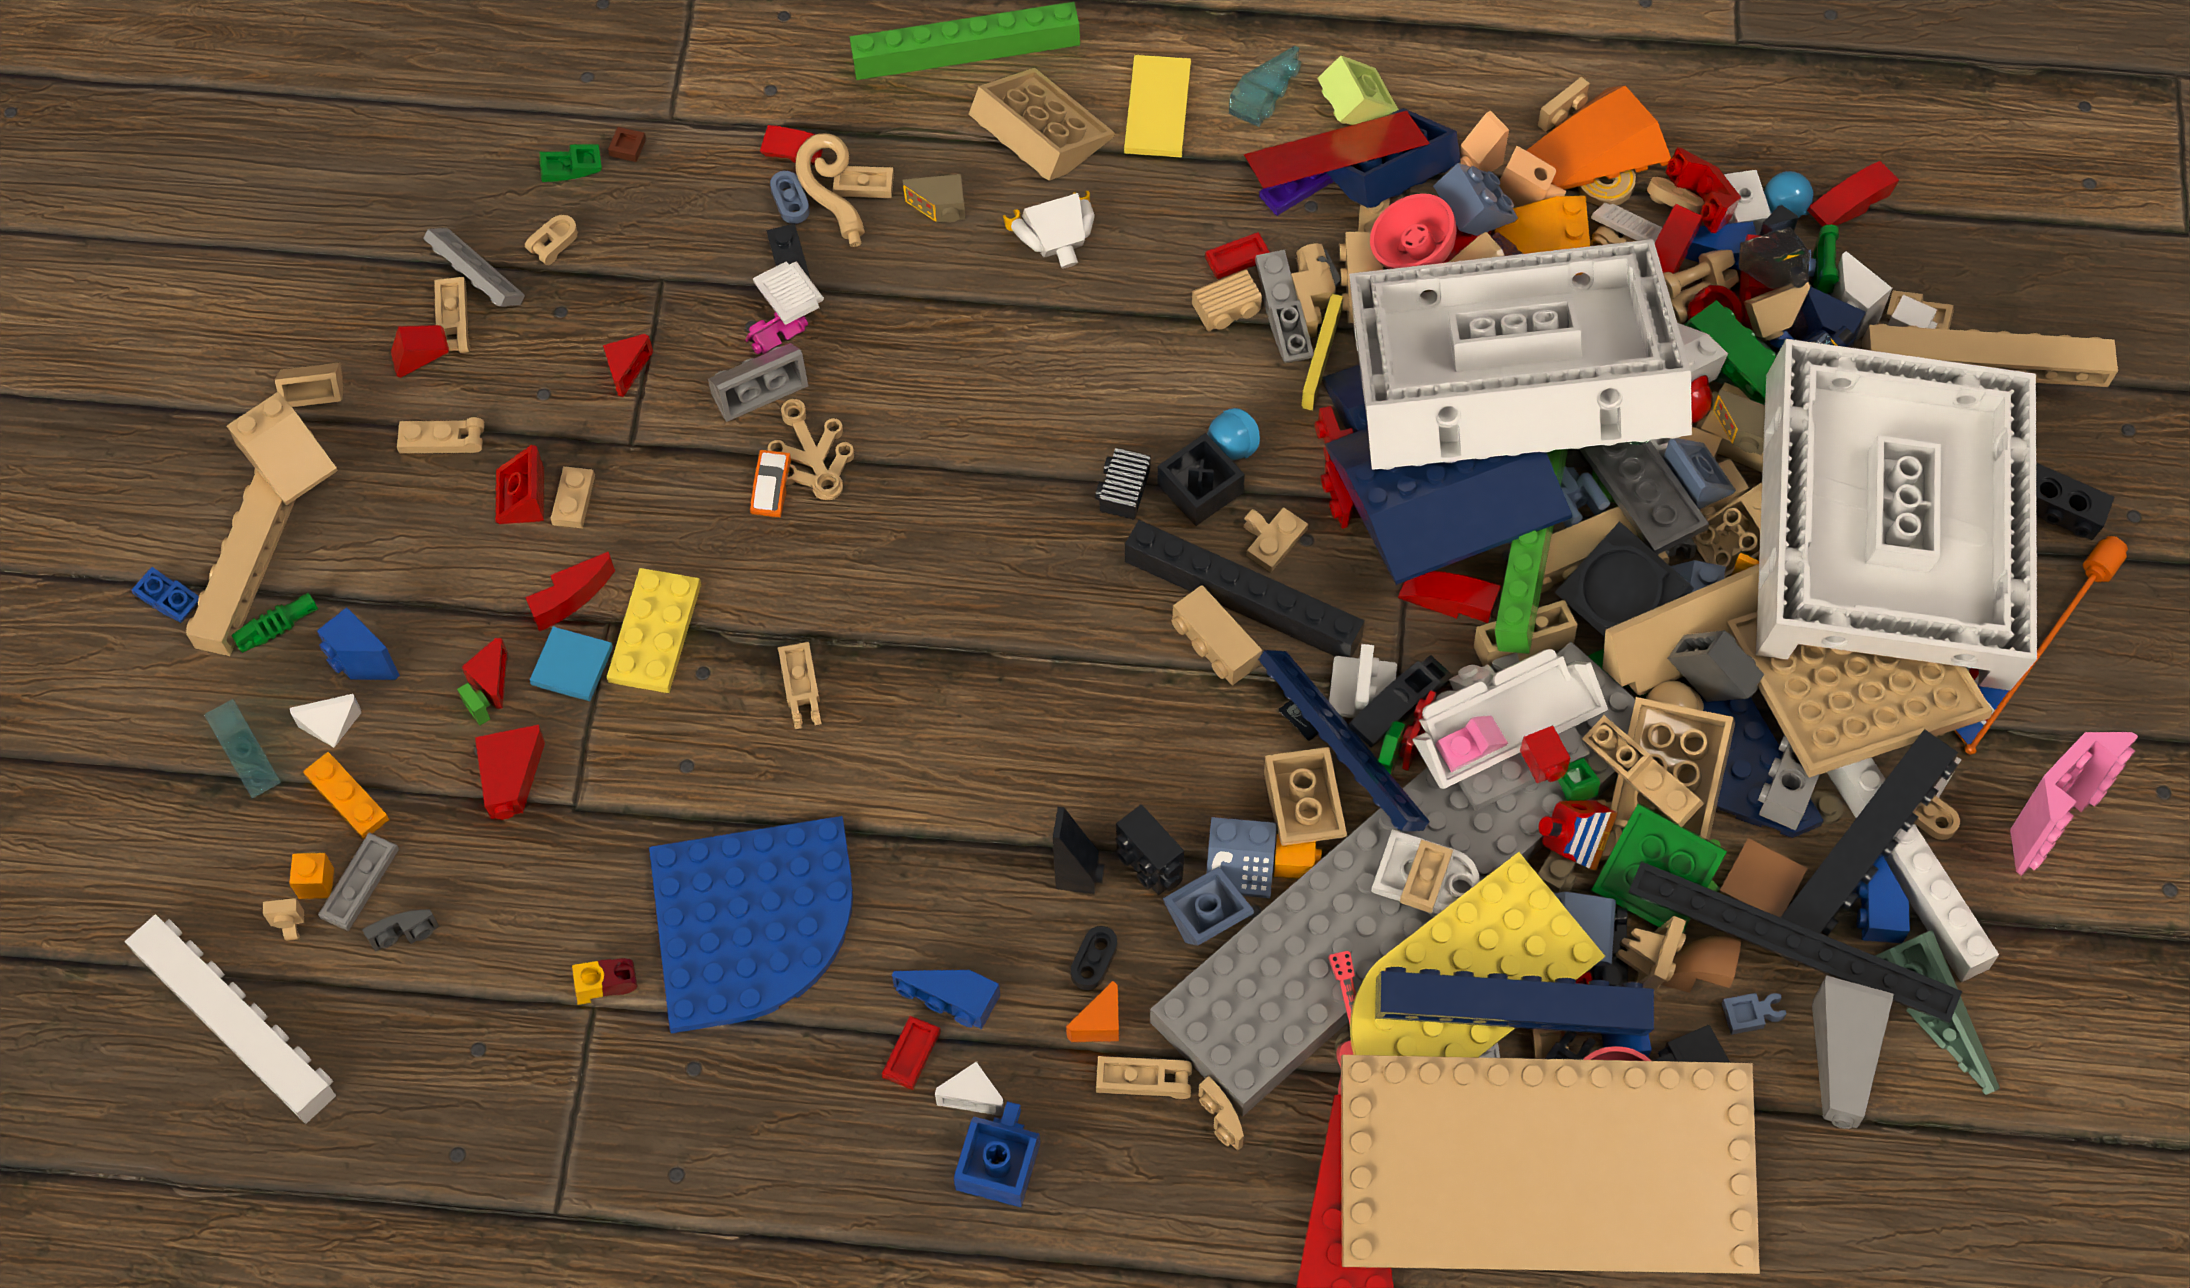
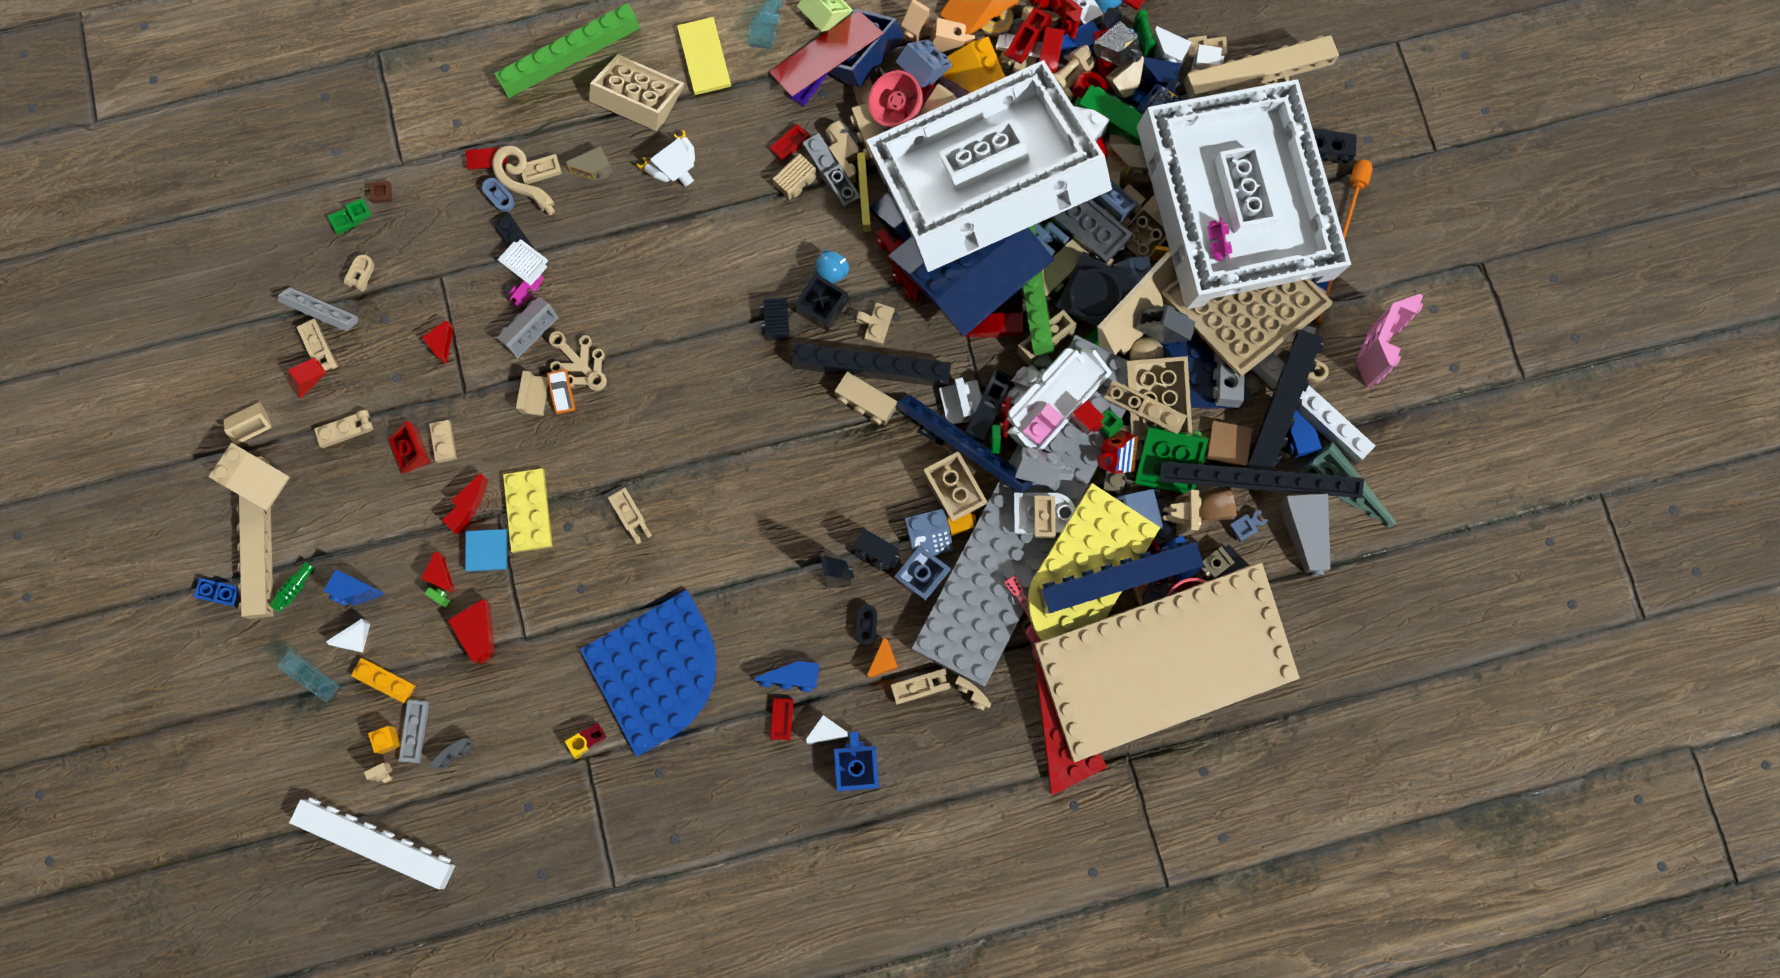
camera: 20 degrees left, 15 degrees up
(726, 474) = (532, 394): none -> tan panel
(1449, 805) = (1042, 467): none -> light grey hinge
(1646, 211) = (1028, 35): none -> red slope
(1691, 1039) = (1223, 560): none -> dark tan brick
(1841, 549) = (1219, 232): none -> dark pink hinge

